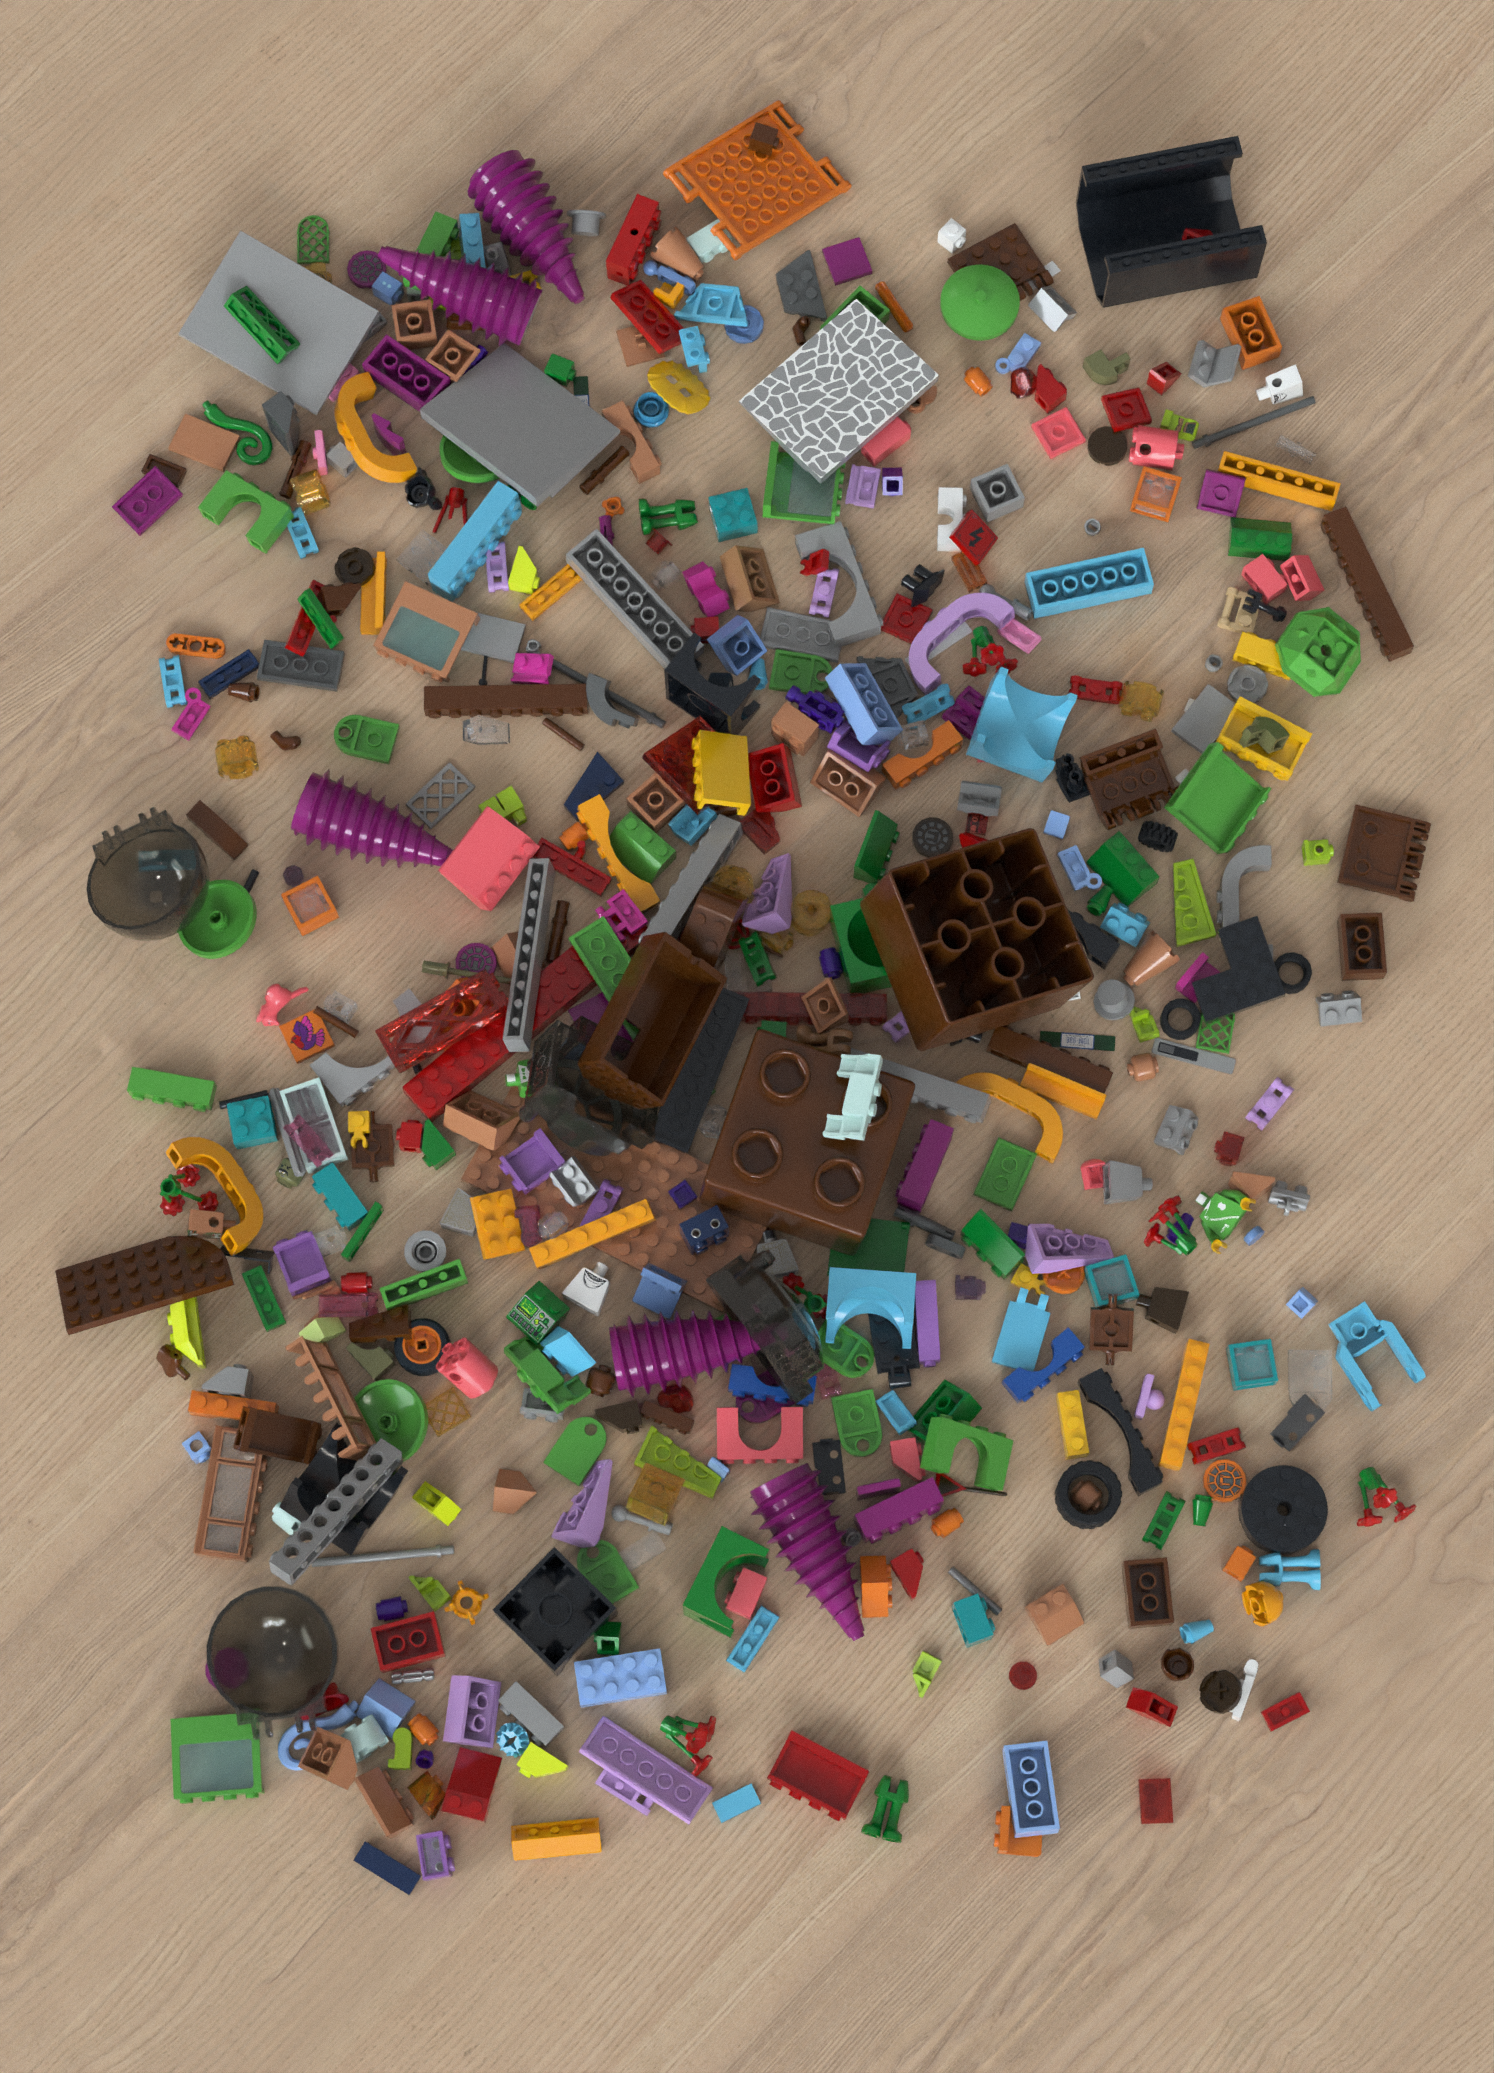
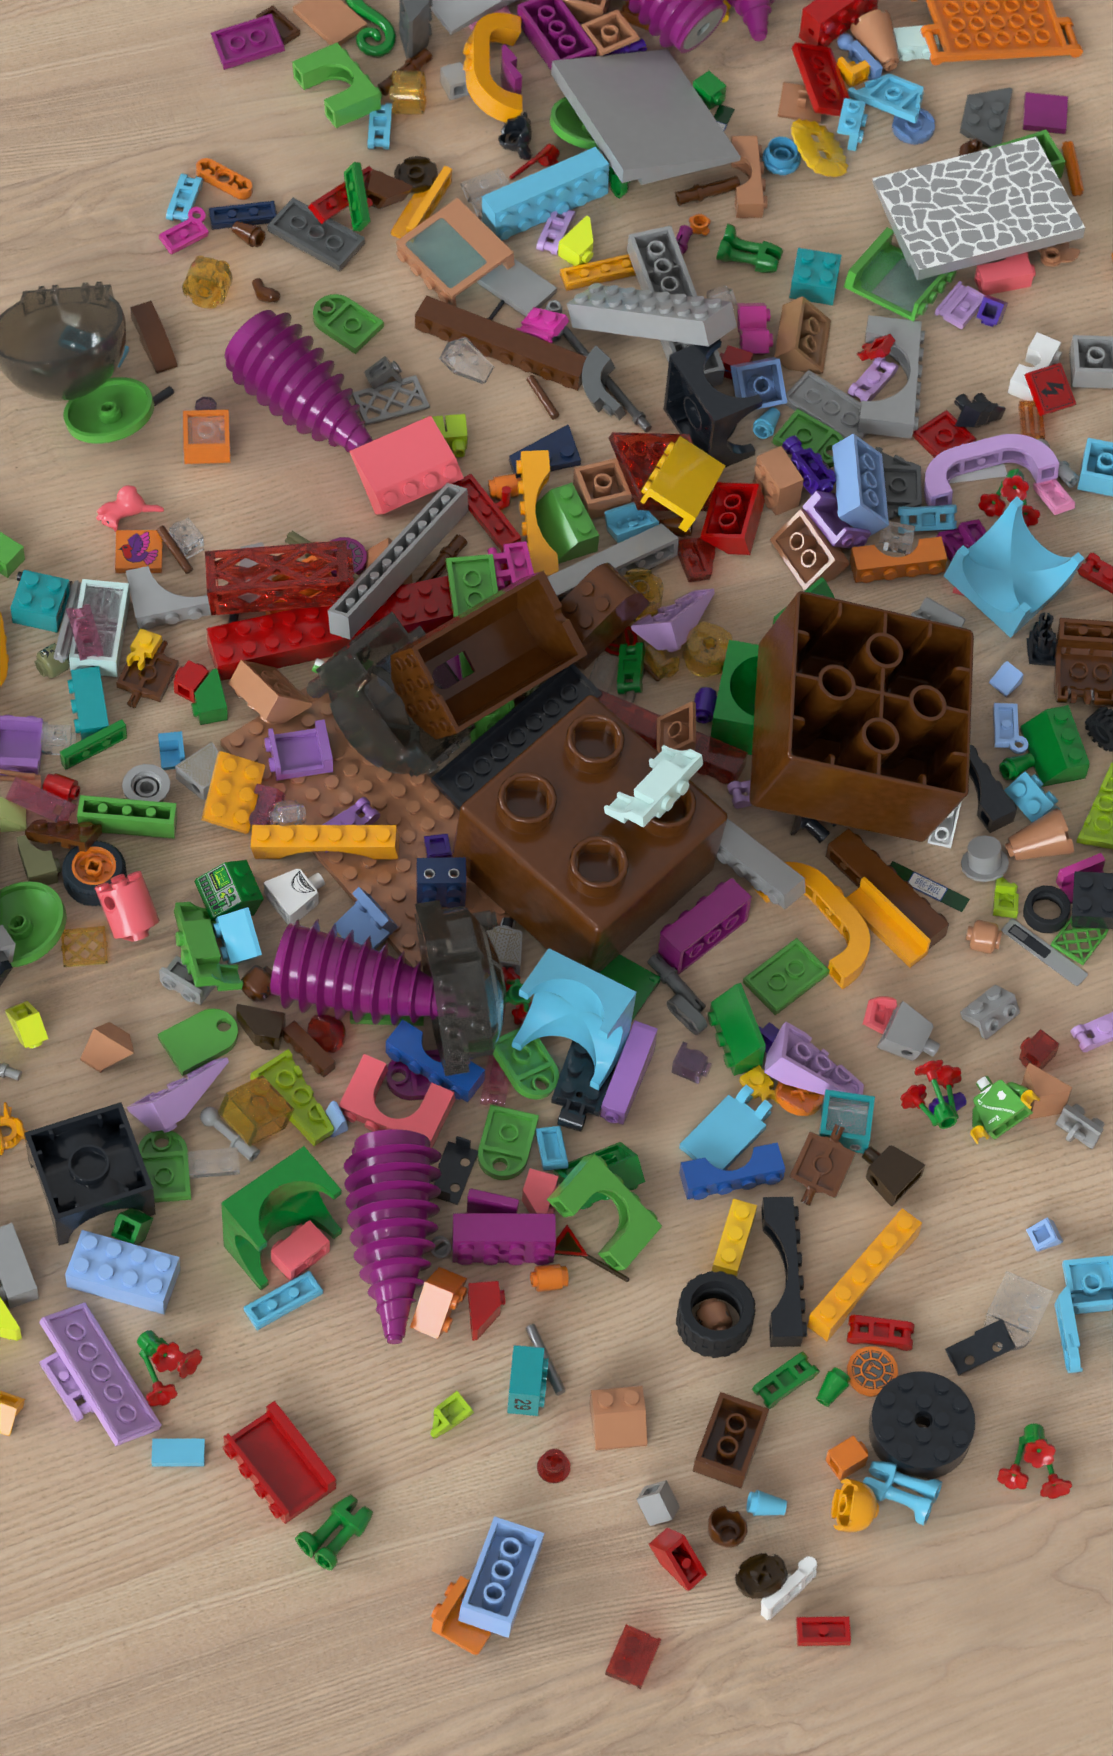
camera: 20 degrees right, 15 degrees down
(319, 452) = (435, 65): bright pink plate -> none
(422, 774) = (382, 371): none -> flat silver bracket
(427, 1207) = (171, 749): none -> dark azure panel
(574, 1182) = (332, 786): light grey bracket -> none
(626, 629) = (652, 314): none -> light grey brick
(657, 542) = (727, 270): clear red piece -> none
(1148, 1397) = (829, 1251): lavender tile -> none
(1251, 1364) = (958, 1266): piece -> none
(1253, 1235) = (1023, 1145): medium blue tile -> none

